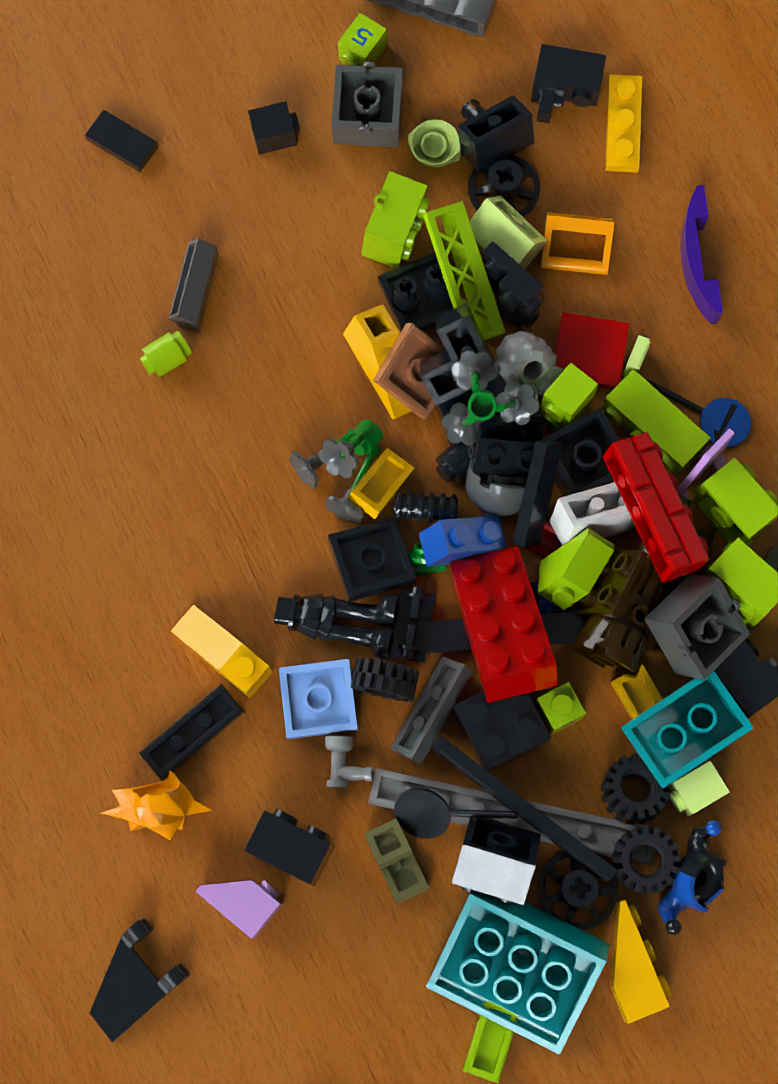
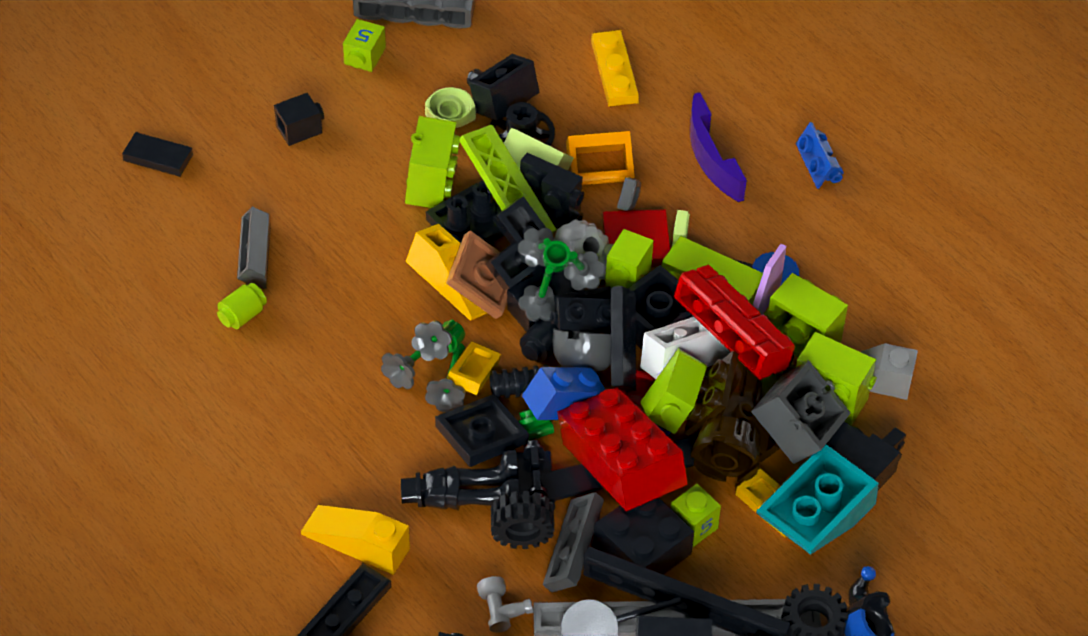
camera: 20 degrees left, 25 degrees down
(318, 699) = (460, 555): light blue plate -> none
(367, 105) = (382, 86): dark grey brick -> none
(566, 76) = (555, 40): black hinge -> none
(595, 298) = (629, 194): none -> dark grey tile
(625, 807) = (781, 579): black tyre -> none
(697, 789) = (844, 556): yellowish green brick -> none

